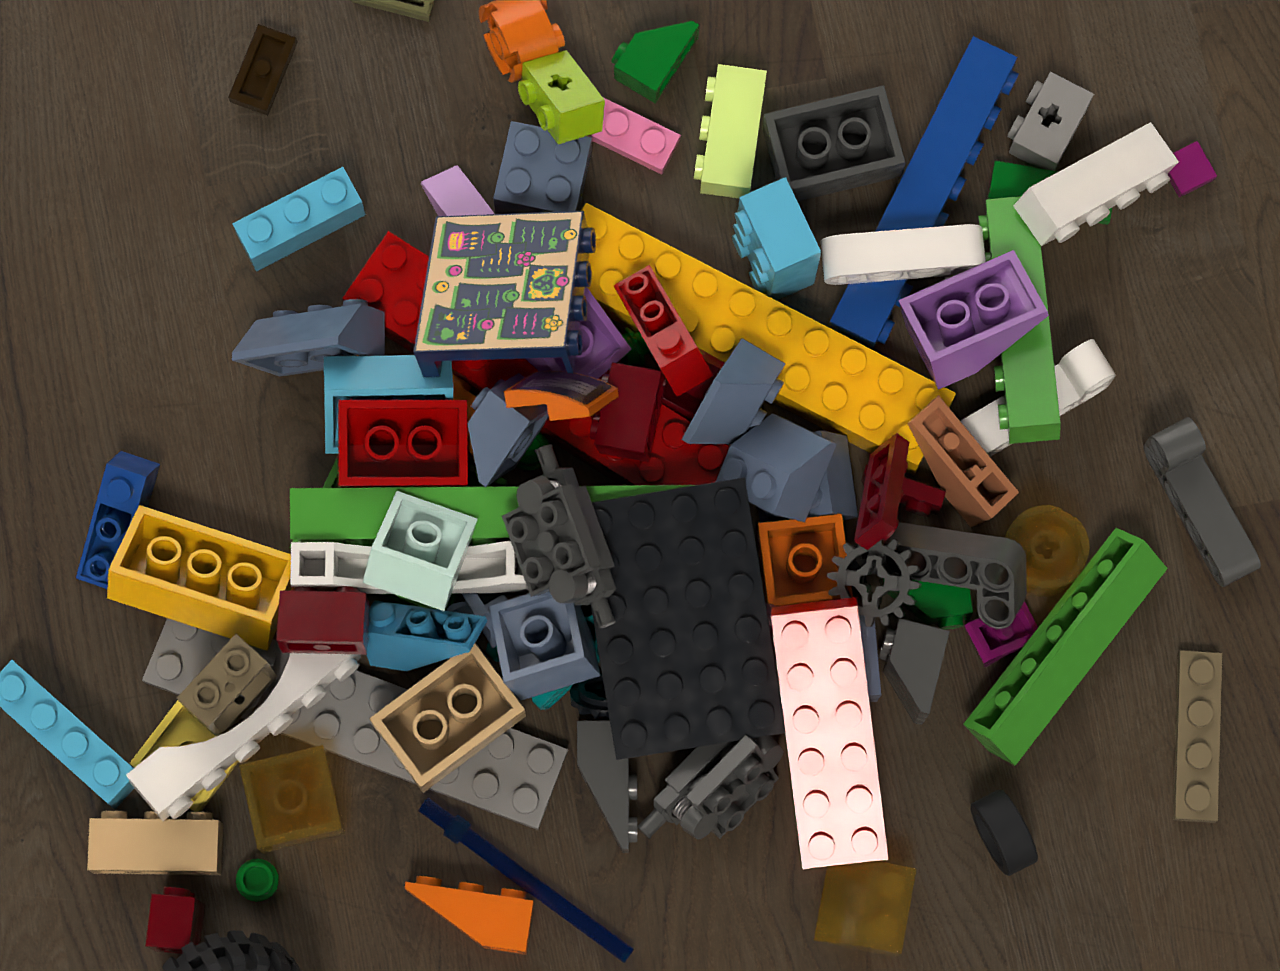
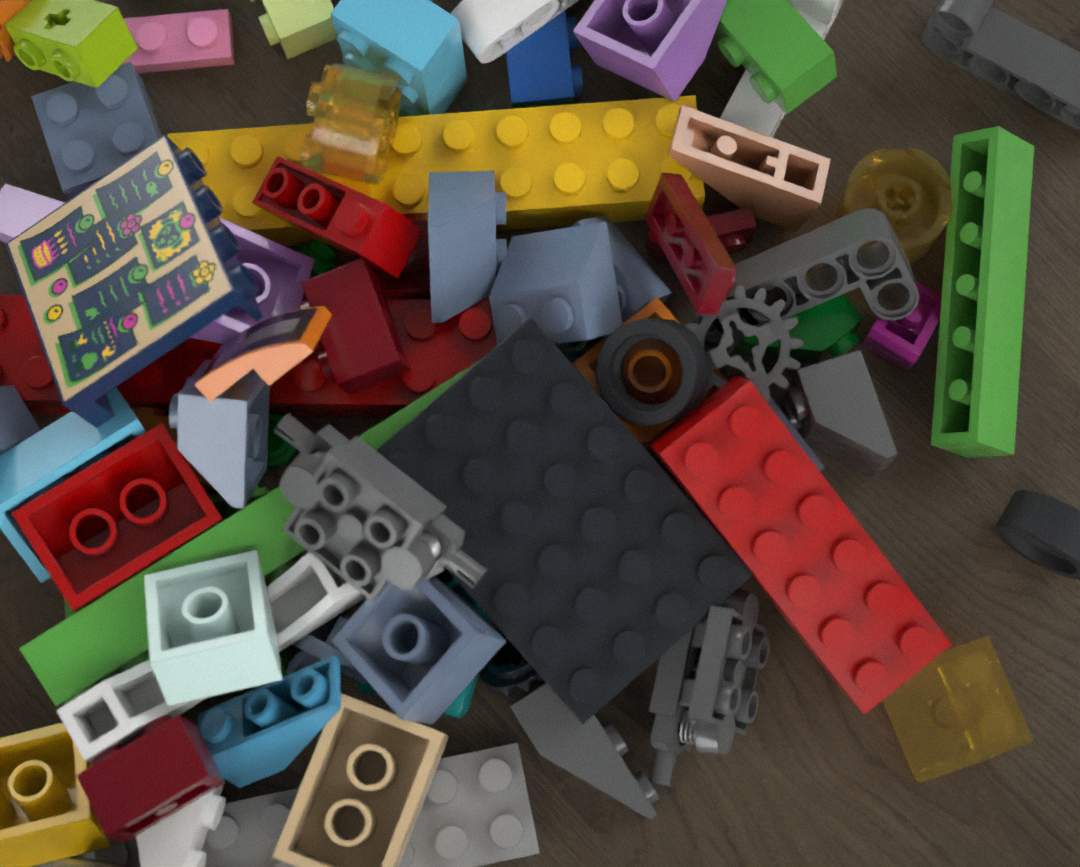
camera: 25 degrees left, 0 degrees up
(710, 277) = (352, 123): none -> clear yellow brick
(774, 552) = (612, 382): none -> black tyre

